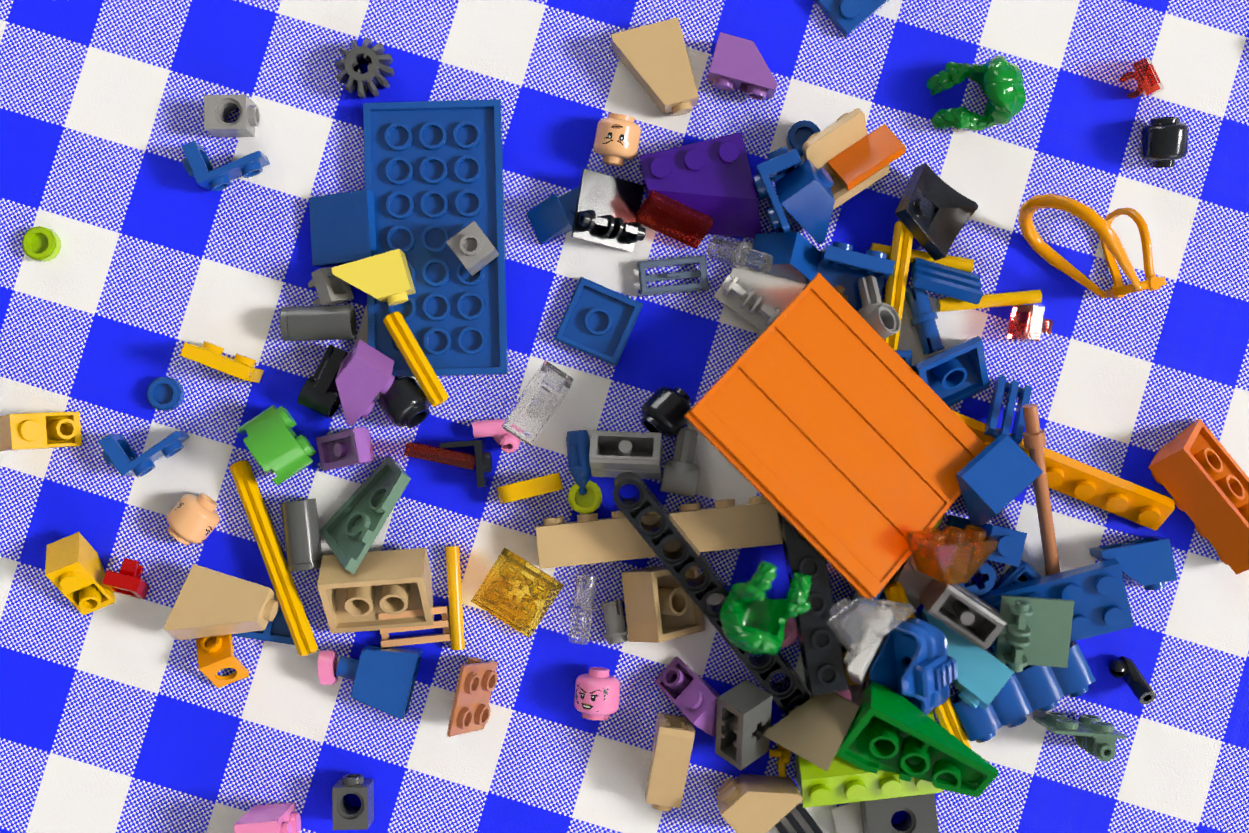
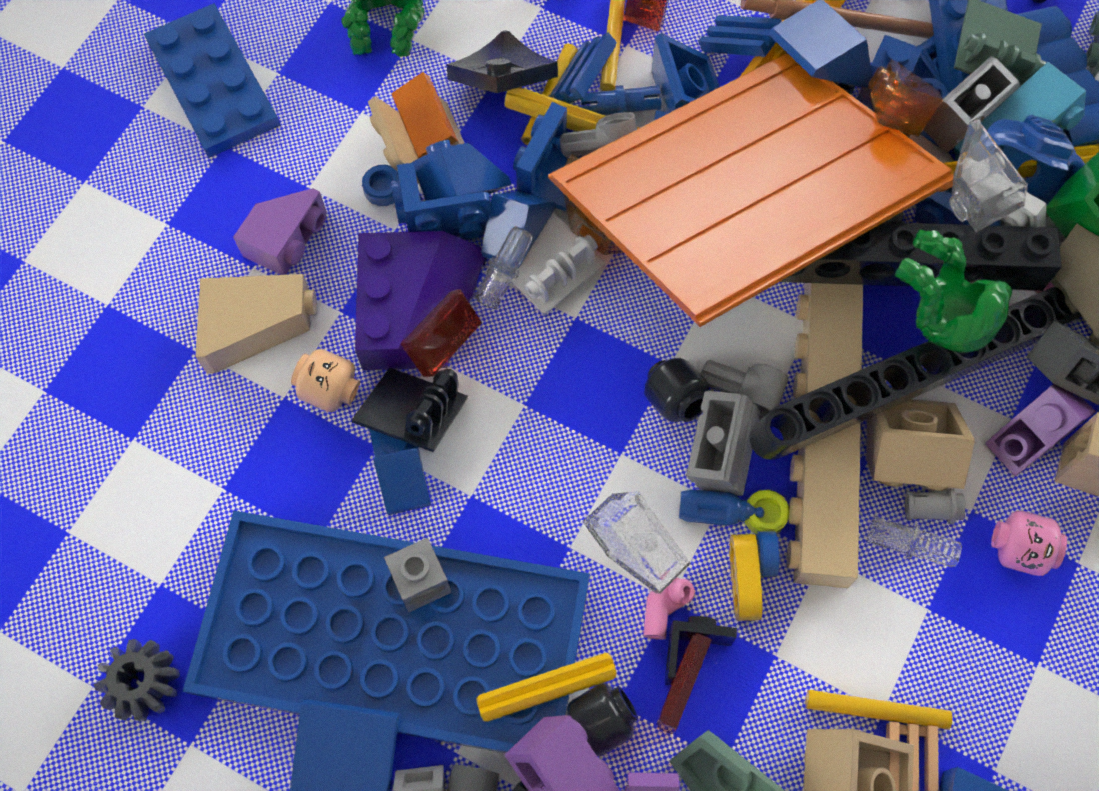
camera: 70 degrees left, 20 degrees down
(380, 276) = (425, 710): light yellow slope -> none
(472, 696) = (1036, 716): nougat hinge -> none
(517, 592) = (884, 617): clear yellow tile -> none
(549, 500) = (768, 553): none -> blue tile
(598, 321) = (545, 453): blue tile -> none
(682, 261) = (505, 388): sand blue tile -> none

